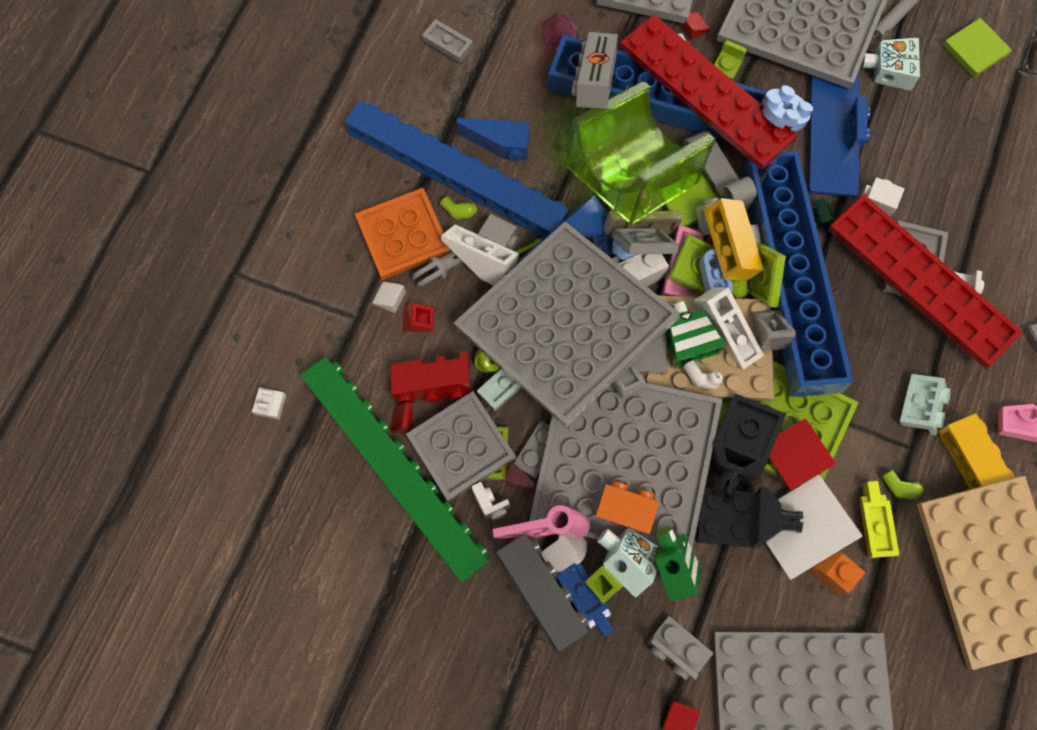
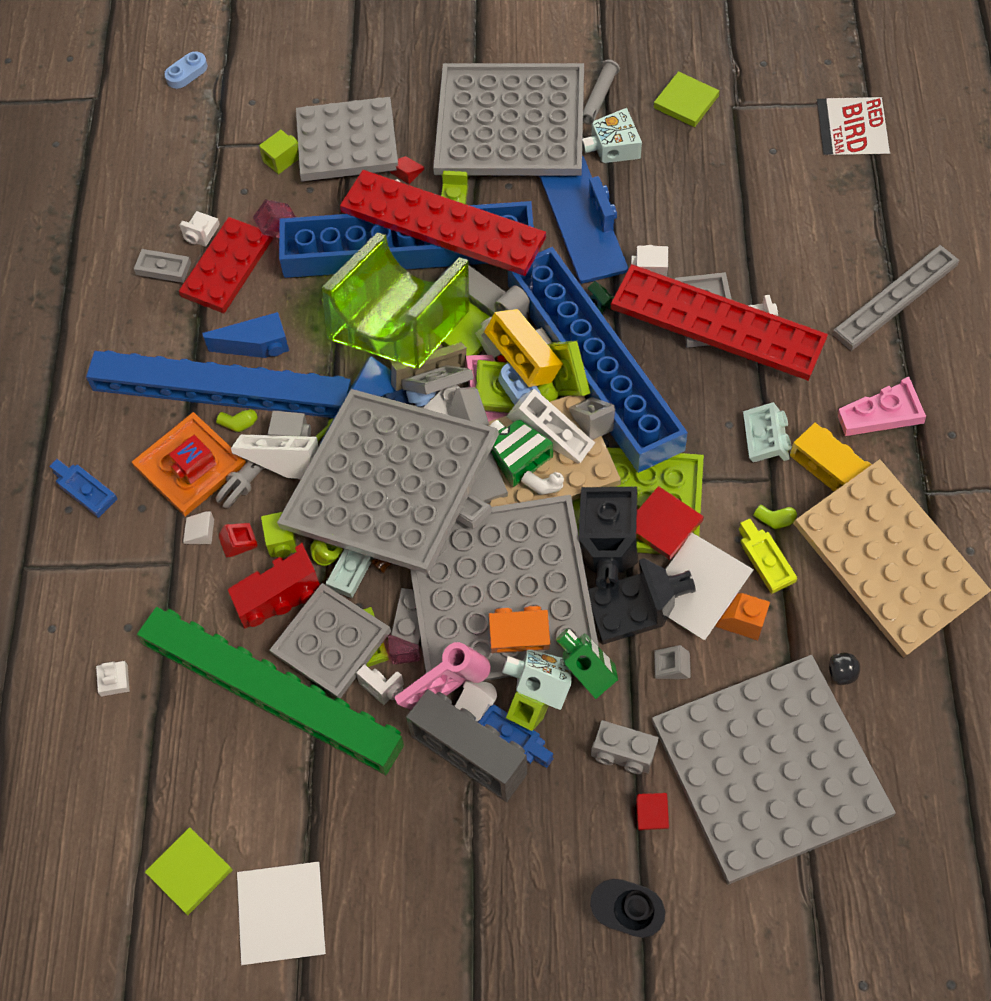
camera: 20 degrees left, 10 degrees down
(267, 602) = (188, 871): none -> lime tile
(307, 221) = (83, 487): none -> blue hinge
(329, 671) = (280, 913): none -> white sticker
(402, 418) = (259, 639): red slope -> none
(404, 233) = (191, 459): none -> red brick
(450, 336) = (278, 541): none -> lime brick
(492, 17) = (199, 229): none -> white bracket
(502, 59) = (225, 265): none -> red plate
(595, 70) = (326, 237): light grey brick -> none
(662, 278) = (468, 405): none -> light grey slope
(752, 587) = (672, 663): none -> light grey slope
(786, 108) = (525, 211): light blue plate -> none
(908, 659) = (844, 668): none -> black piece

